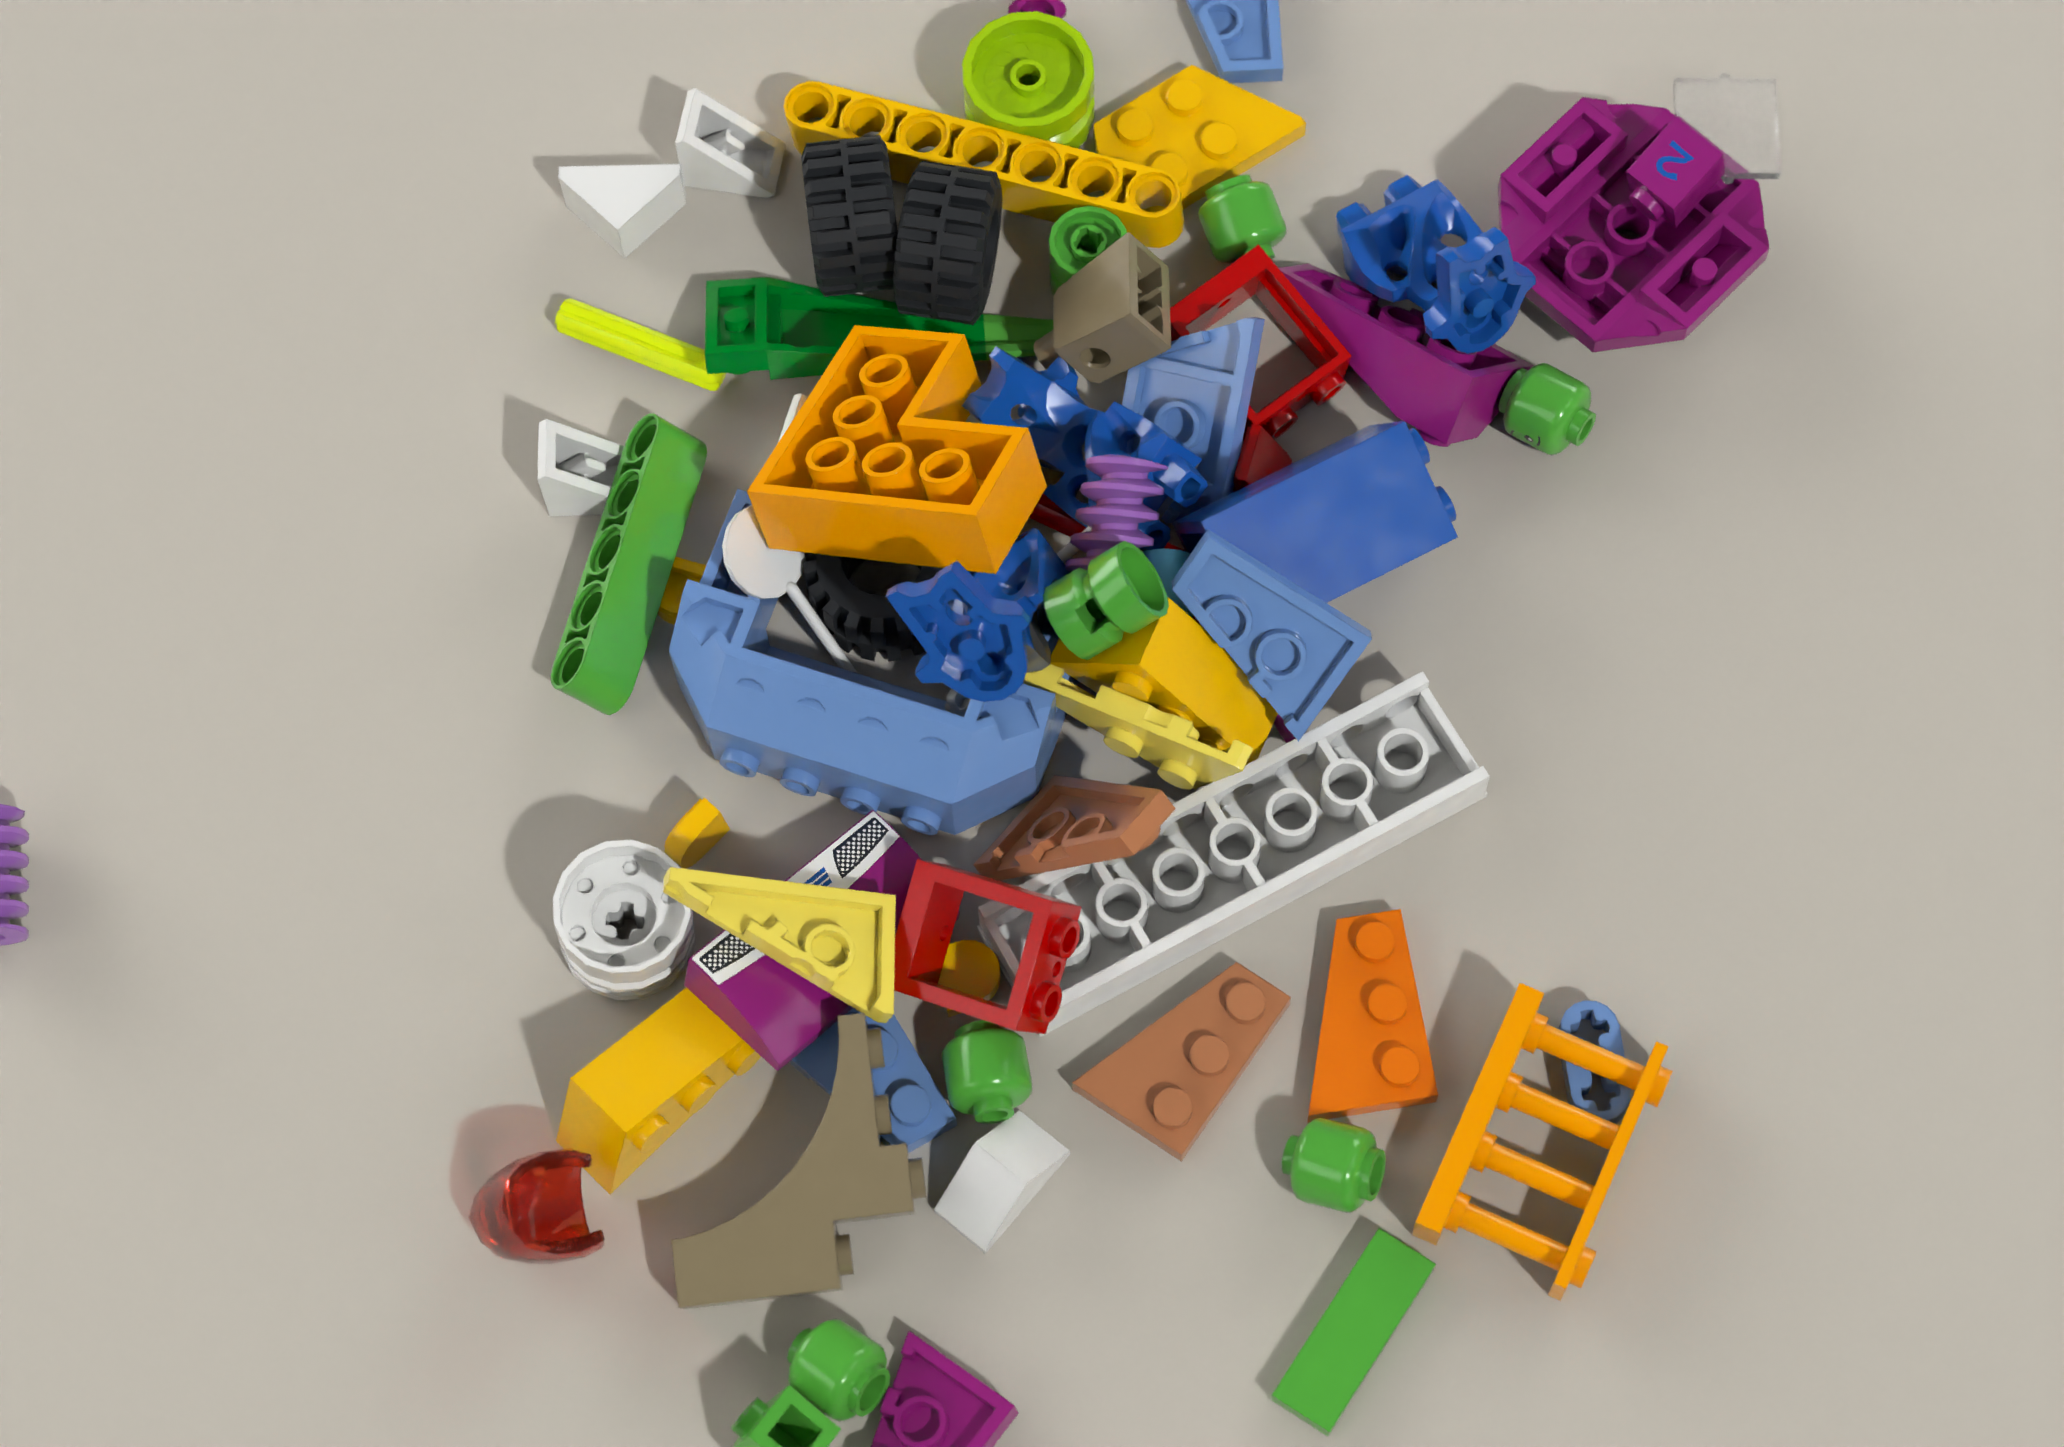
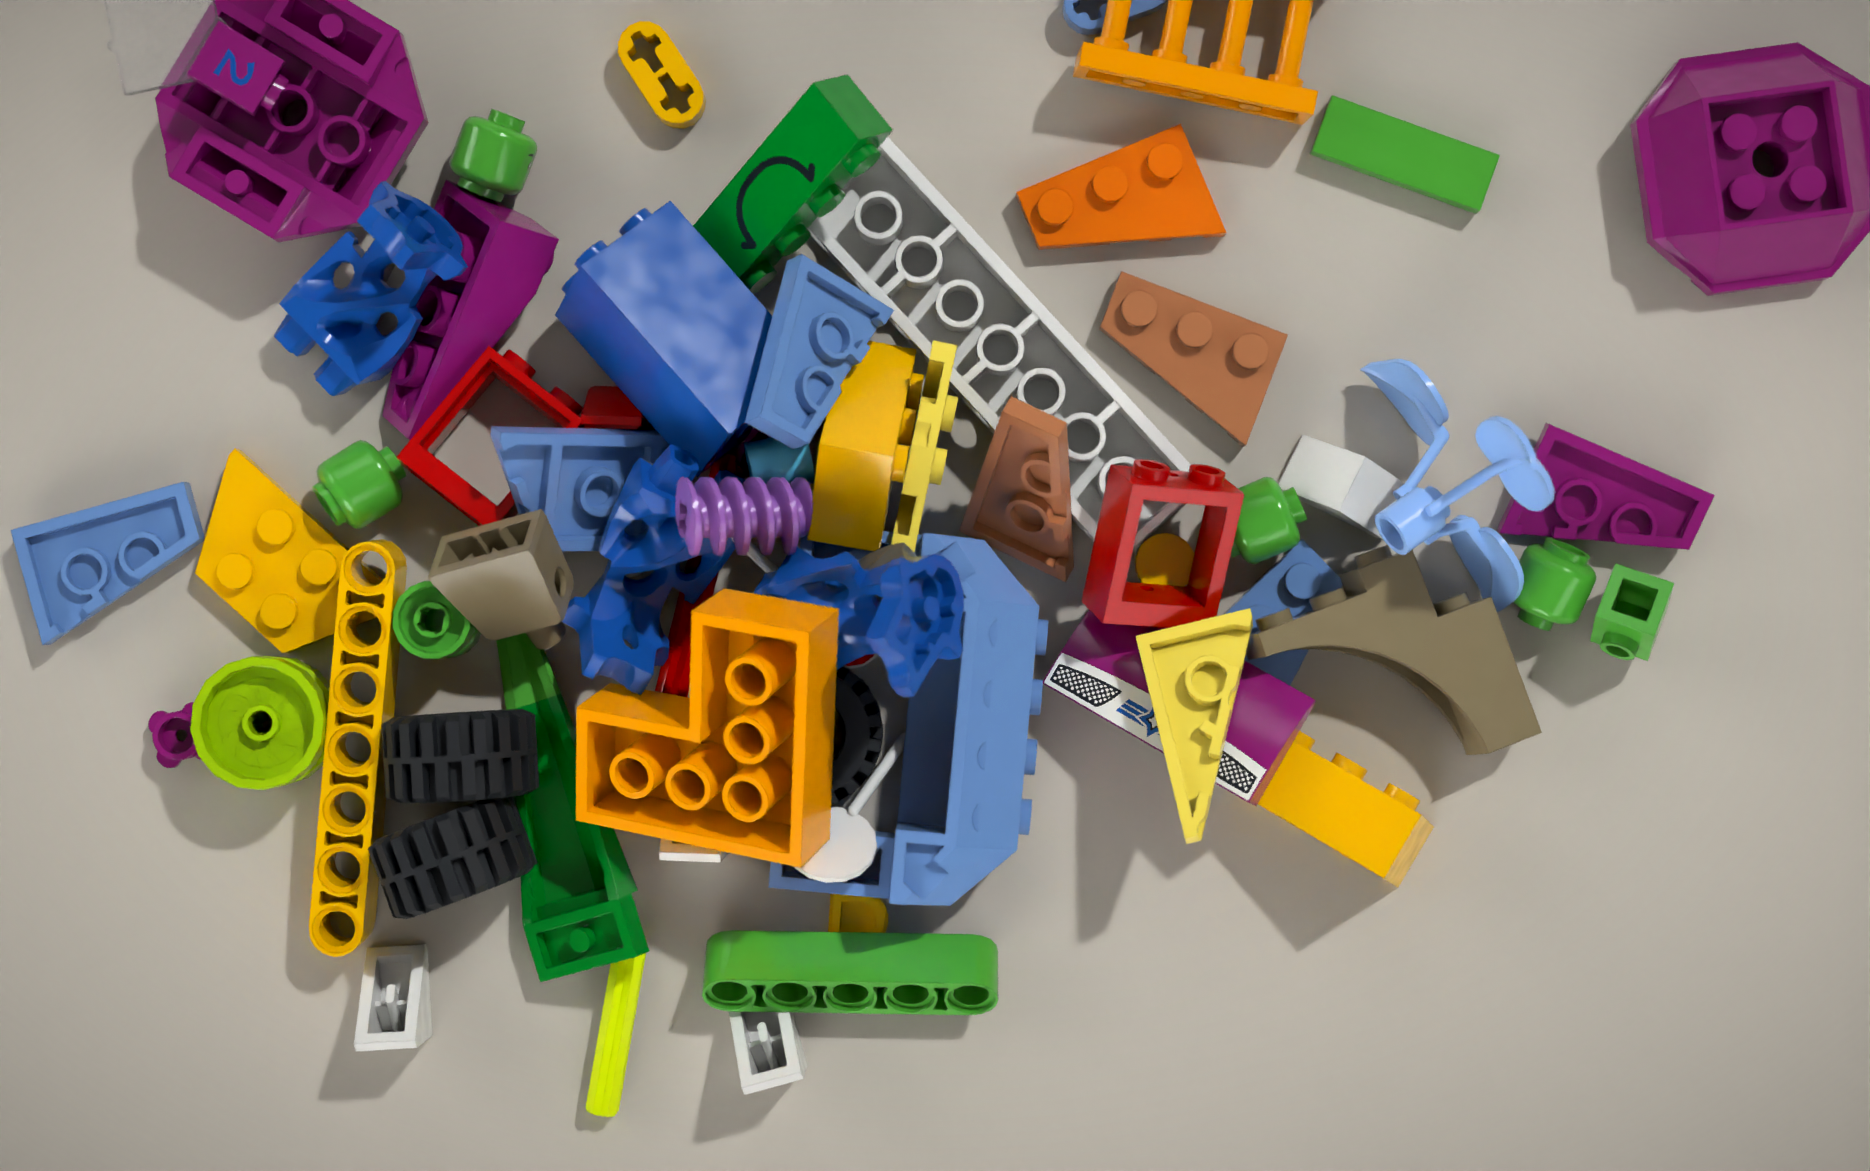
camera: 105 degrees left, 20 degrees up
(536, 1210) = (1483, 880): clear red piece -> none
(595, 898) = (1230, 903): white wheel -> none
(623, 200) = (473, 1086): white slope -> none
(695, 834) = (1096, 839): yellow tile -> none
(948, 1207) = (1421, 513): none -> light blue plant
(1101, 603) = (839, 500): bright green wheel -> none
(1334, 1165) = (1268, 199): bright green head -> none
(1452, 654) = (793, 179): none -> green brick
(1605, 603) = (673, 67): none -> yellow beam

